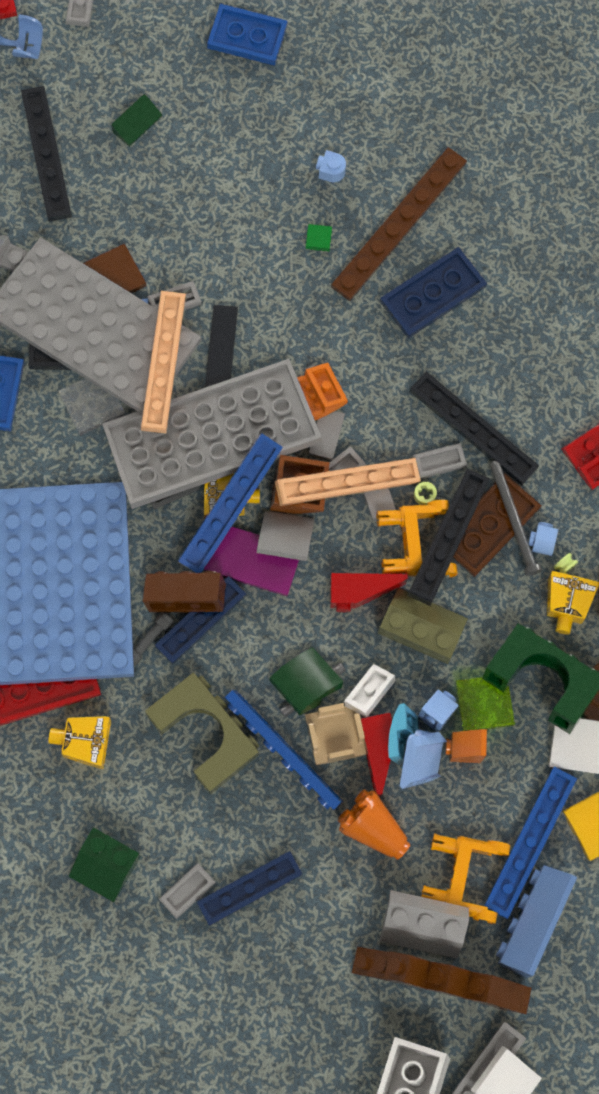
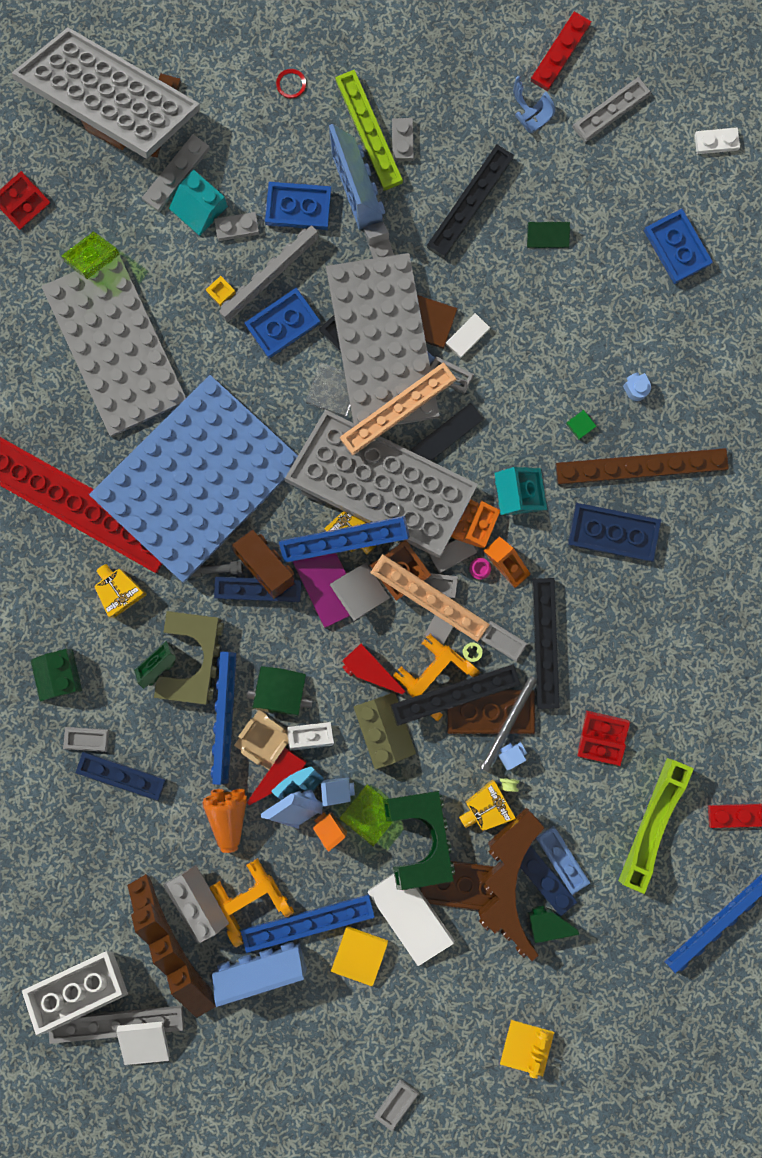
camera: 55 degrees right, 10 degrees up
(155, 257) = (467, 336): none -> white tile
(182, 763) = (149, 670): none -> dark green plate
(326, 332) = (520, 490): none -> teal slope
(360, 424) = (480, 568): none -> dark pink plate
(376, 395) = (507, 561): none -> orange slope

